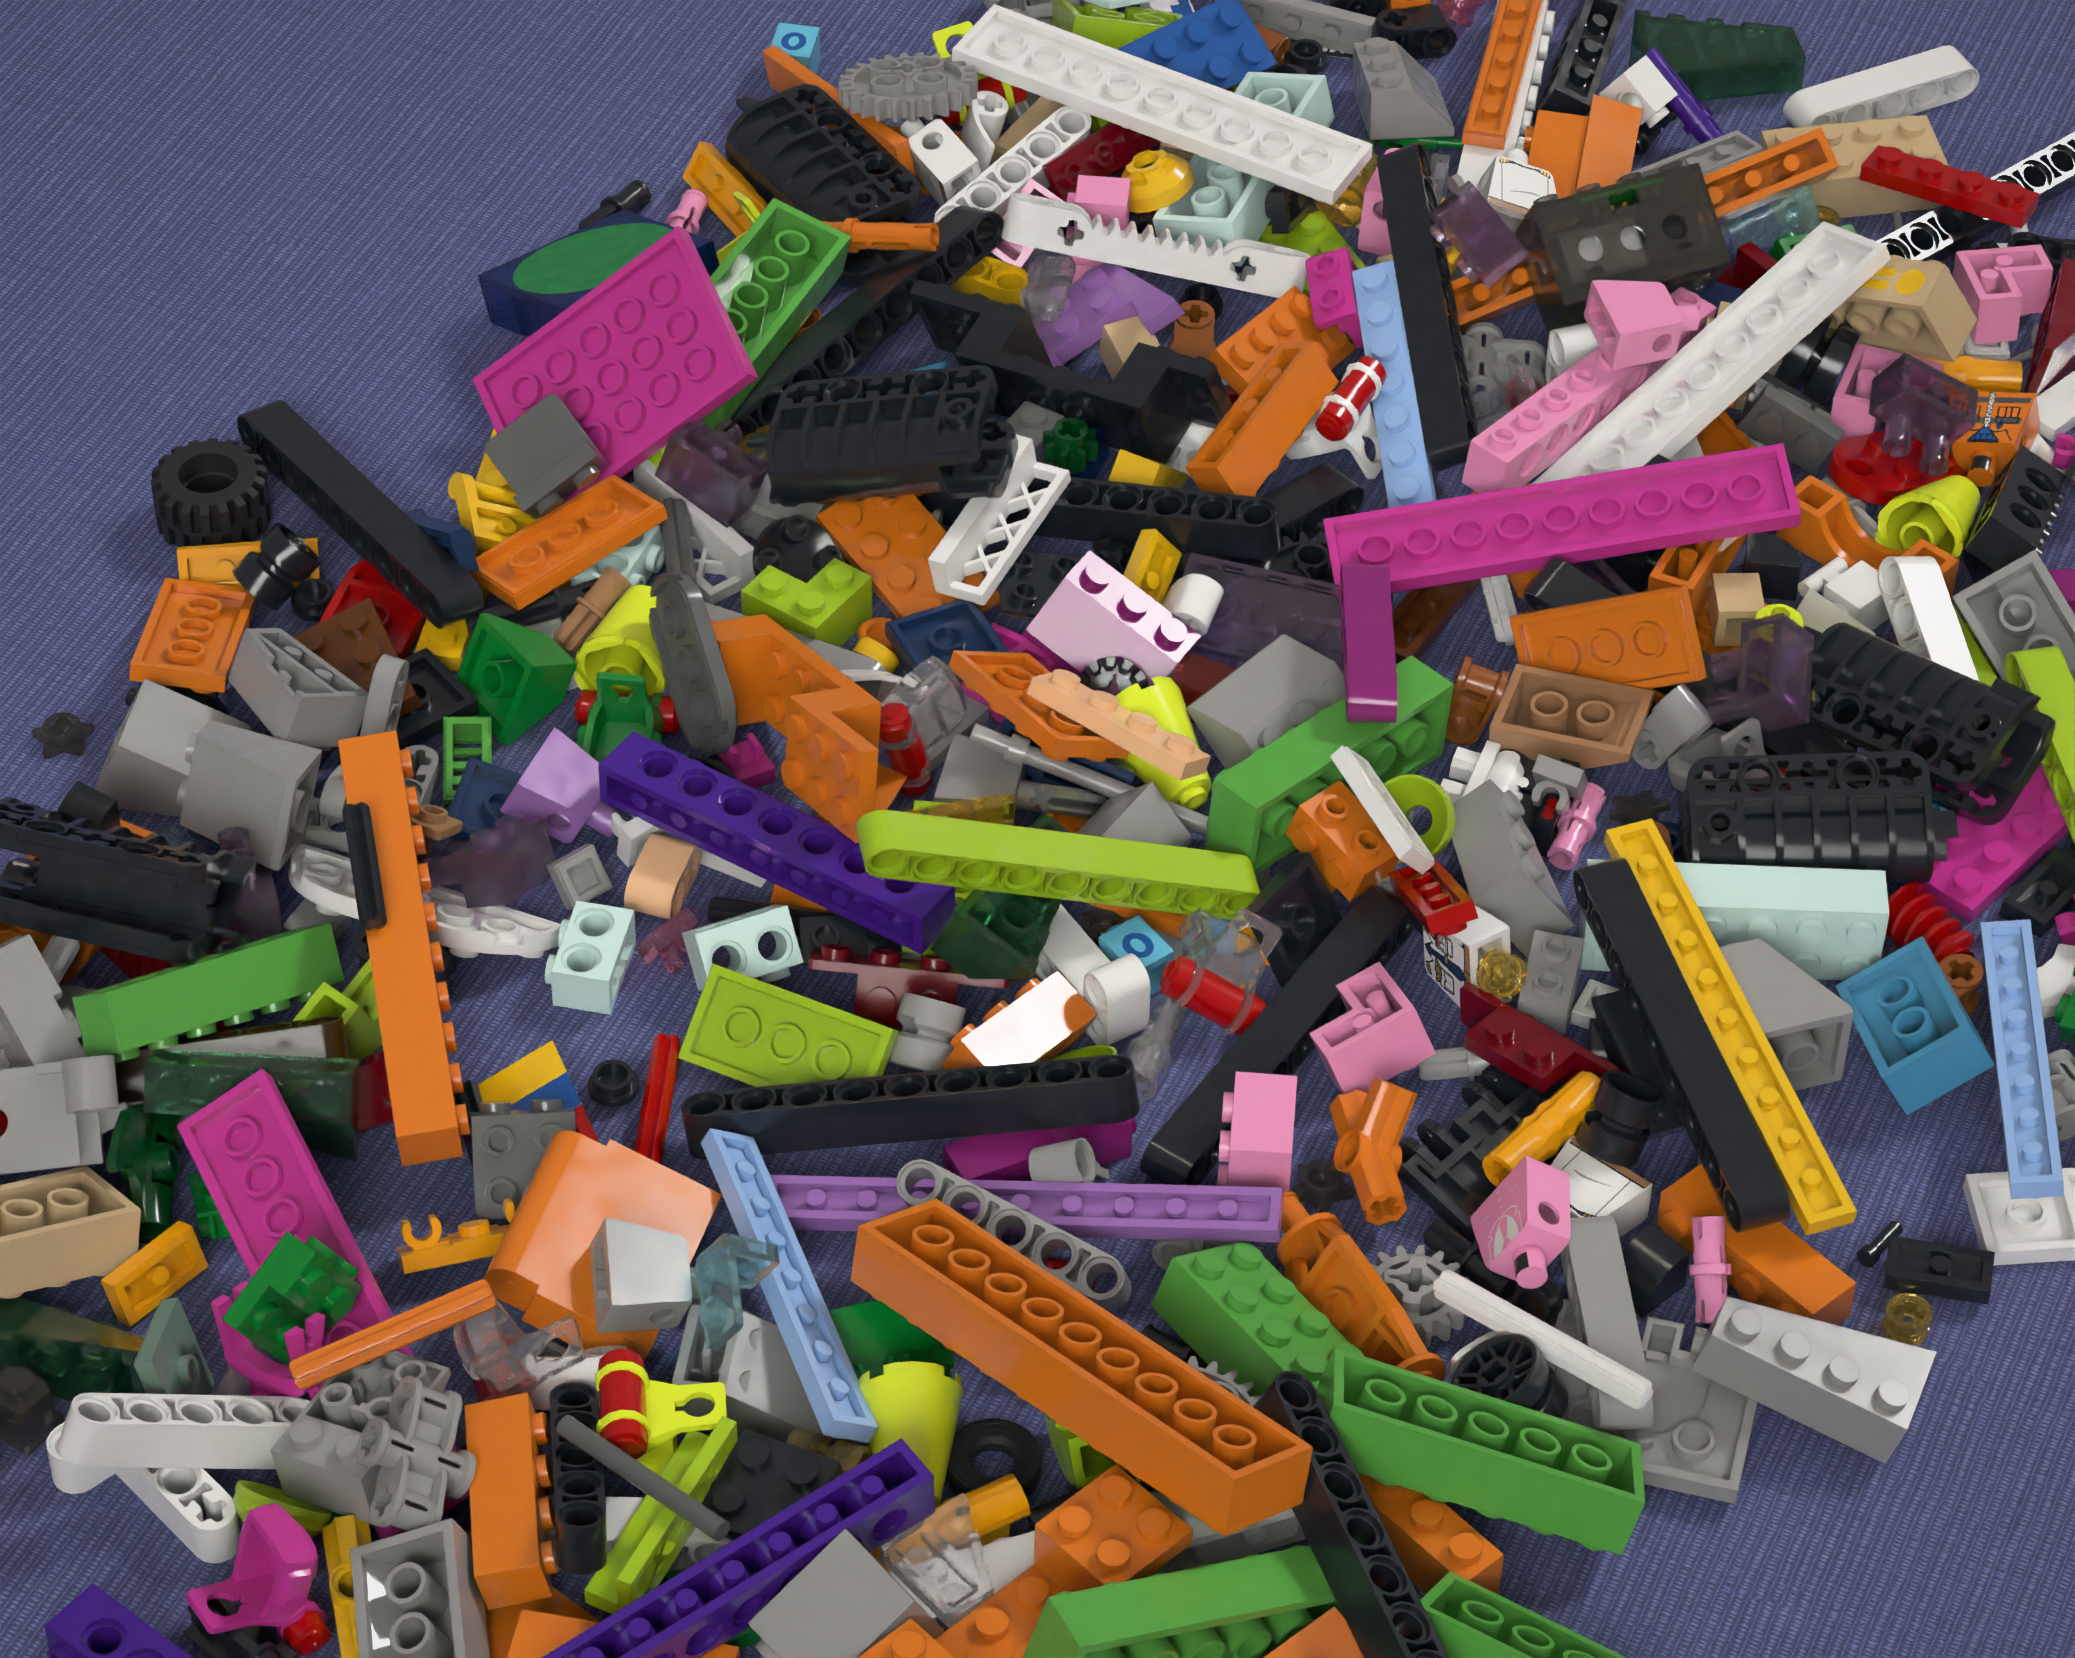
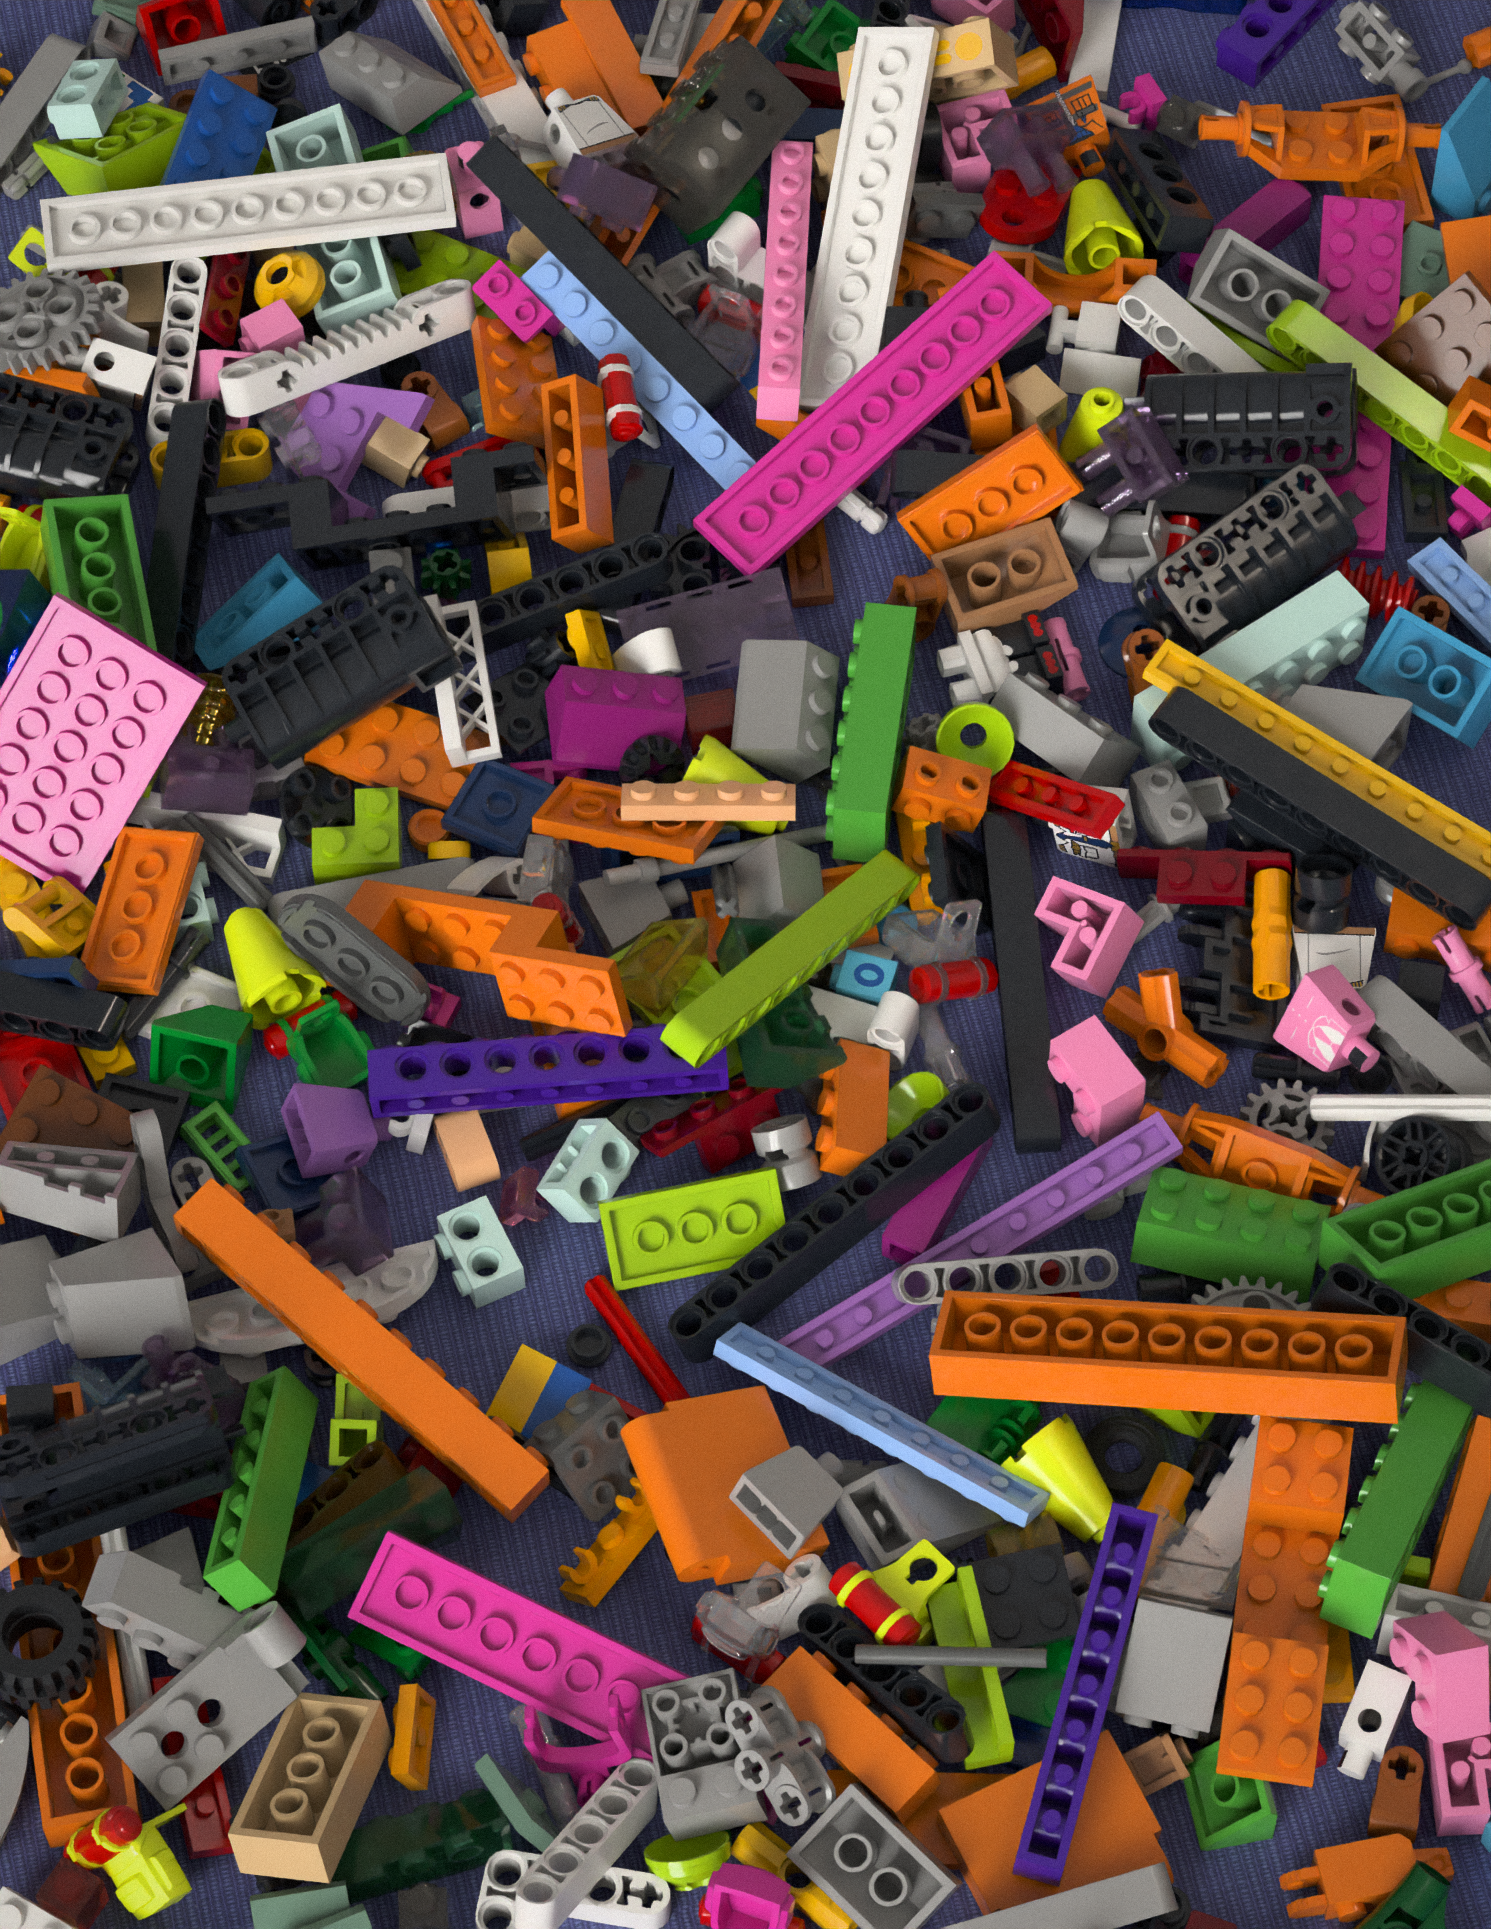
camera: 35 degrees left, 15 degrees up
(289, 1289) = (583, 1682): green plate -> none
(364, 866) = (296, 1308): black axle -> none
(392, 1334) = (679, 1673): orange axle -> none
(545, 456) = (64, 848): dark grey bracket -> none
(579, 876) = (406, 1191): light grey tile -> none
(591, 610) = (212, 958): medium nougat axle -> none
(721, 1272) = (859, 1467): clear light blue bracket -> none
(889, 235) = (144, 474): orange pin -> none
(1066, 1162) = (982, 1193): light grey axle -> none
(1368, 643) = (838, 616): magenta beam -> none
(1383, 809) = (962, 750): white tile -> none
(1511, 968) = (1131, 833): clear yellow bush -> none
(1558, 778) = (1046, 638): light grey tile -> none
(1636, 321) = (788, 201): bright pink torso -> none
(1637, 808) = (1098, 626): clear smoke plate -> none

